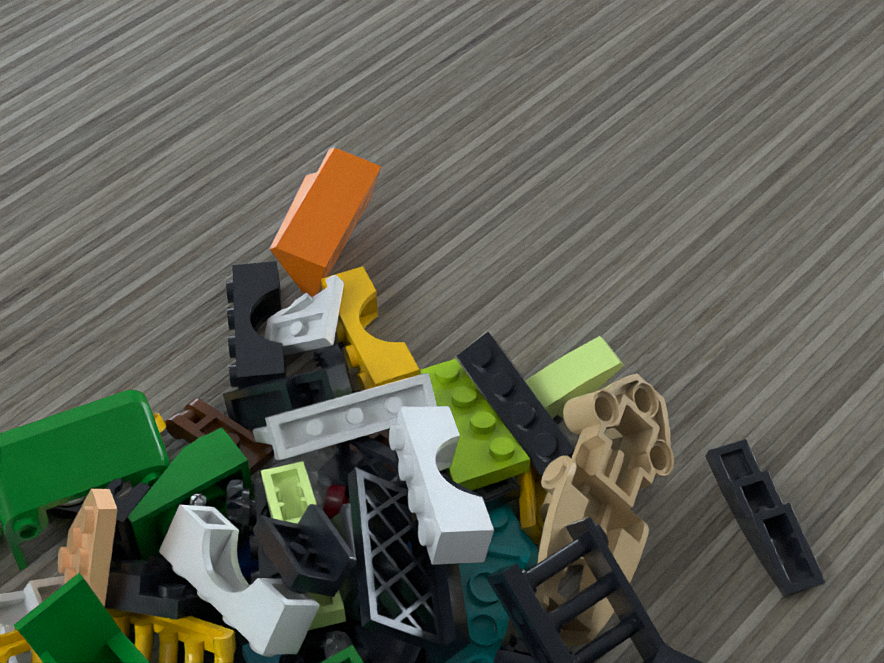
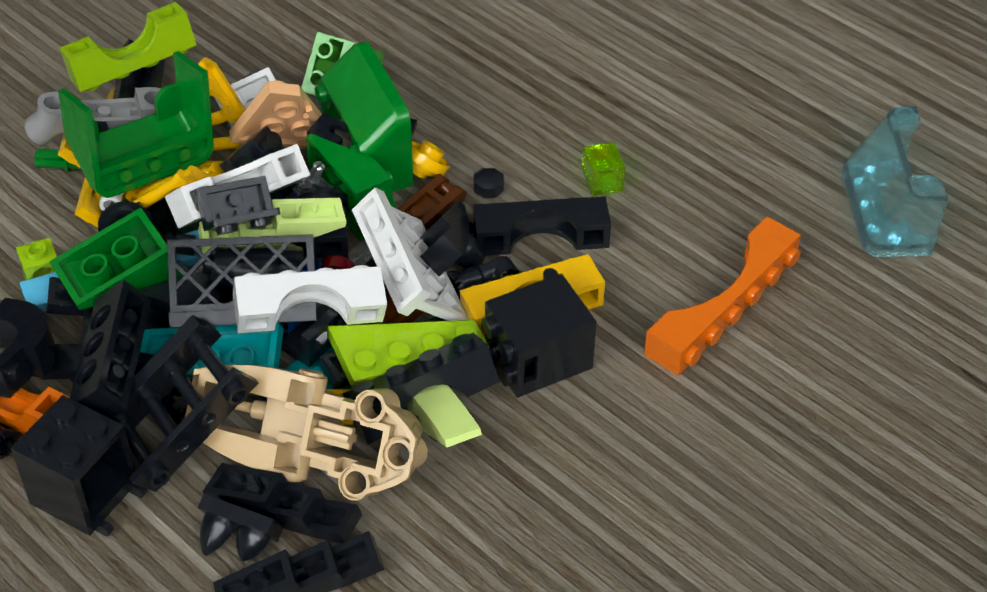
camera: 90 degrees right, 0 degrees up
(172, 278) = (603, 169): none -> clear neon green brick
(174, 384) = (488, 182): none -> black tile
(234, 63) = (891, 206): none -> clear light blue windscreen
(309, 321) = (538, 248): white wing -> none
(324, 217) = (661, 251): orange slope -> none
(423, 222) = (685, 333): none -> orange arch
(434, 308) = (539, 334): none -> black container
(673, 540) = (291, 505): none -> black slope
(703, 589) = (222, 518): none -> black tile

